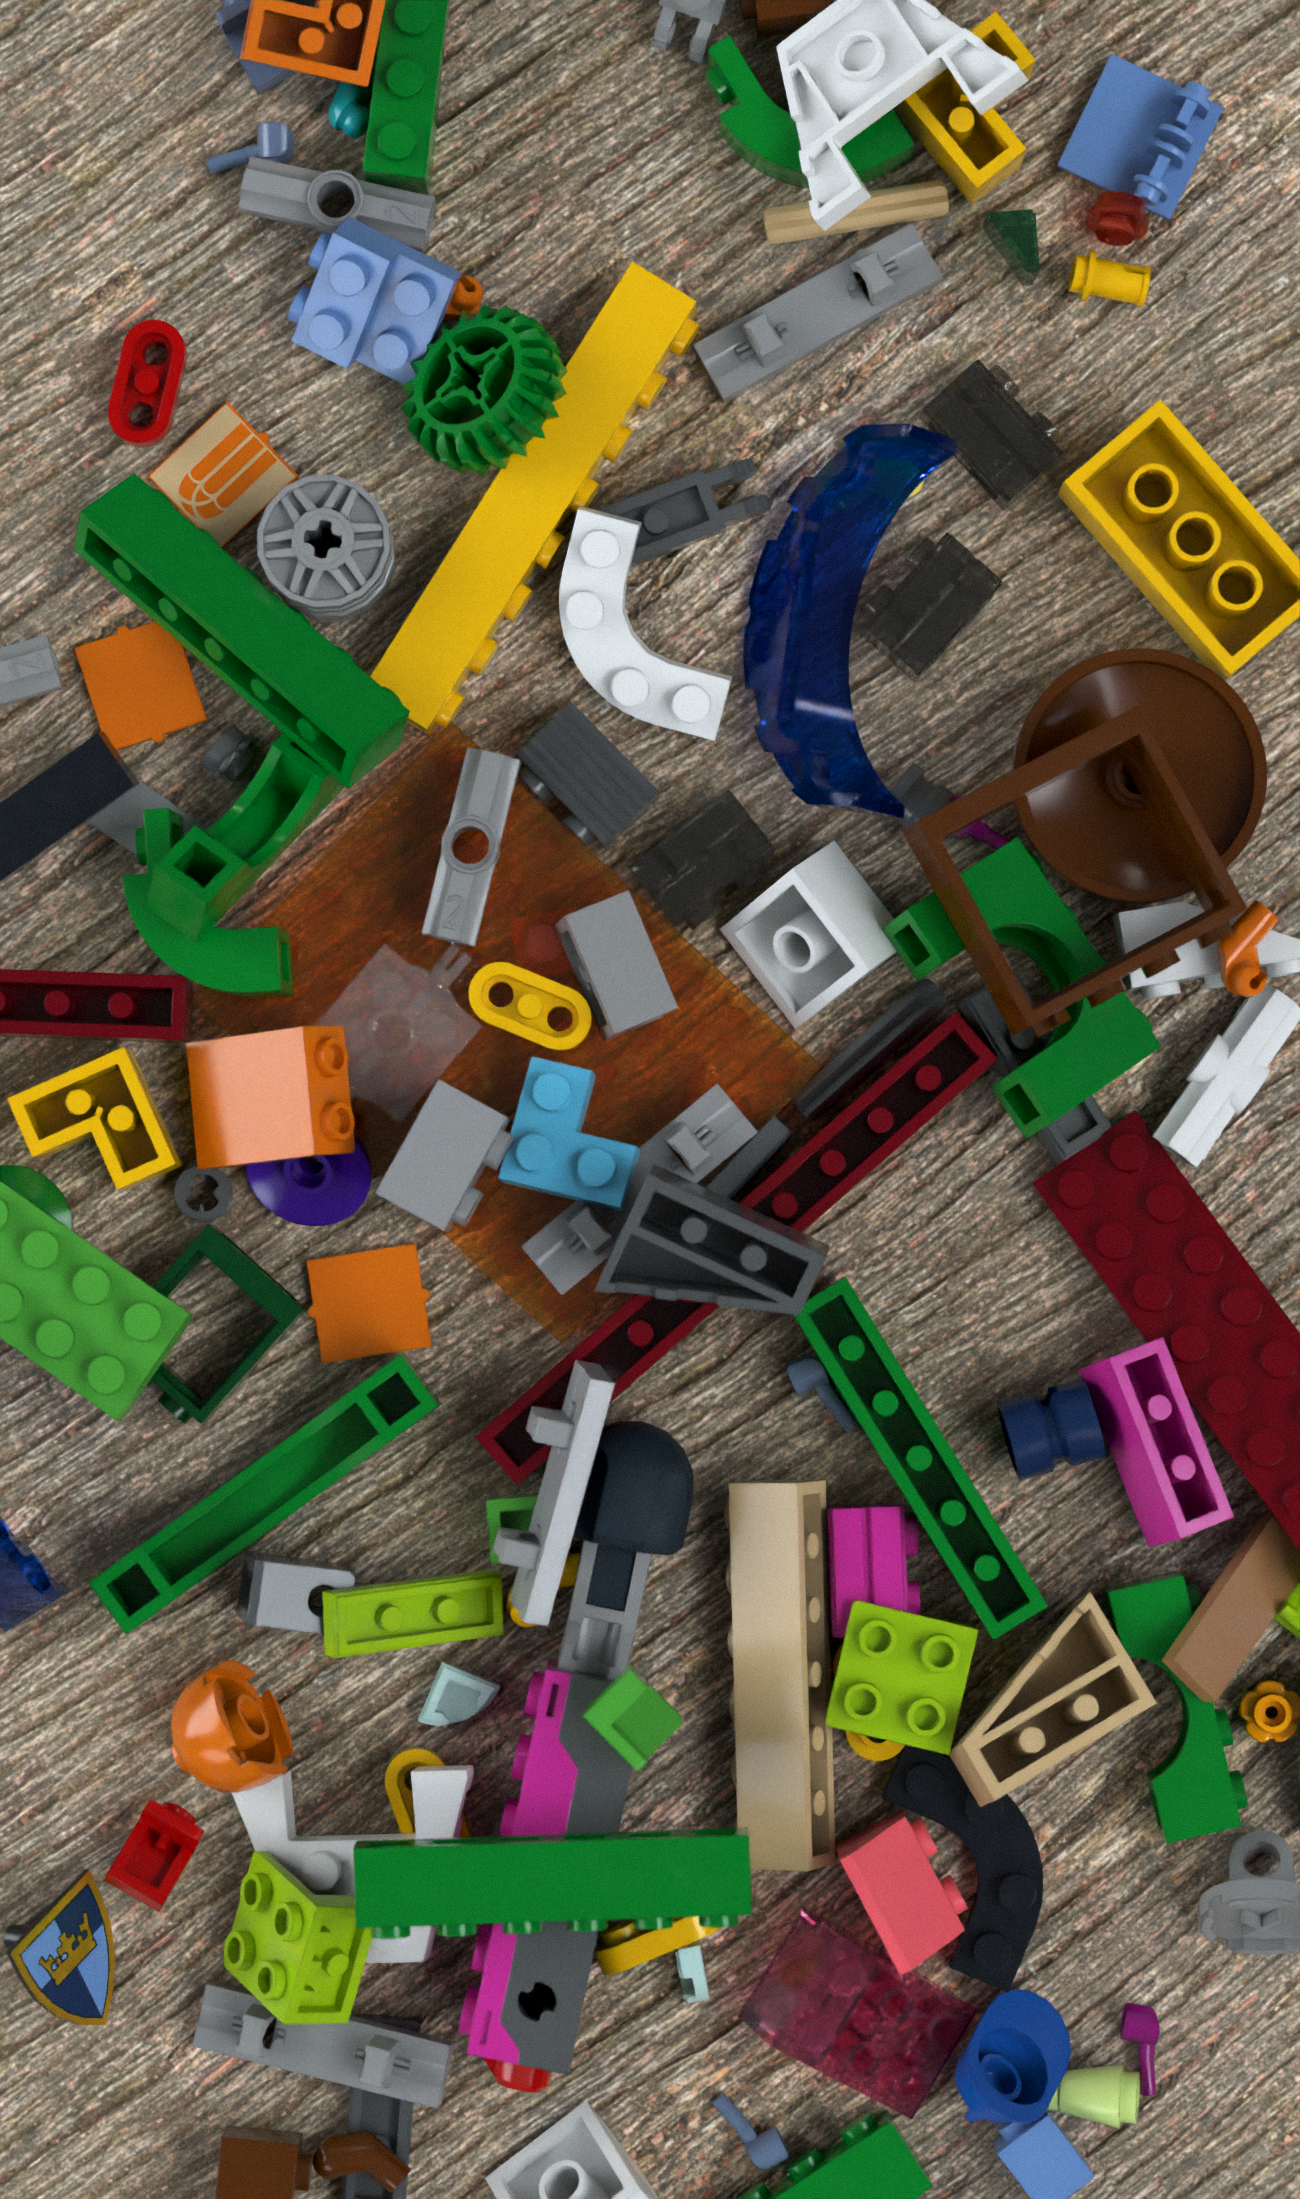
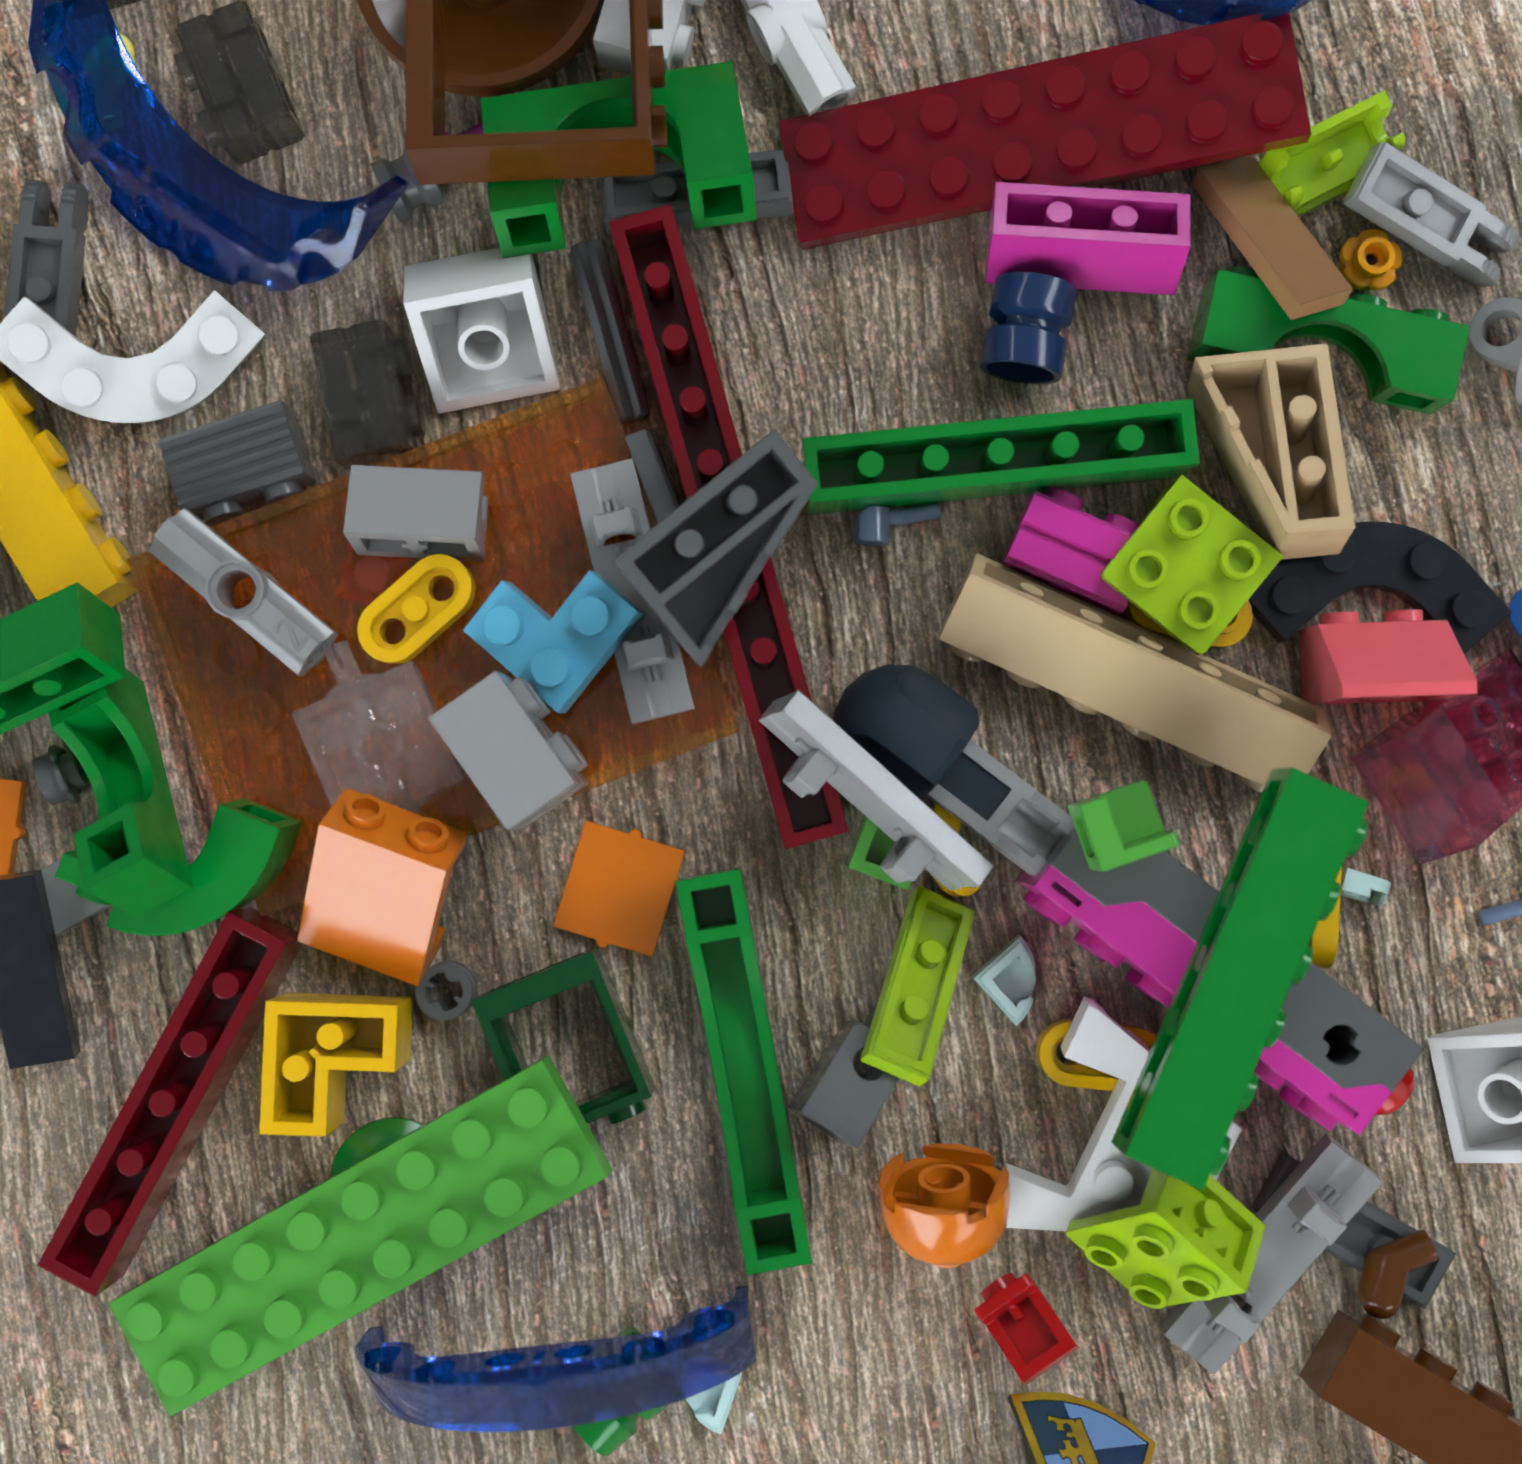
camera: 65 degrees left, 0 degrees up
(313, 1191) = (492, 893): dark purple dish -> none

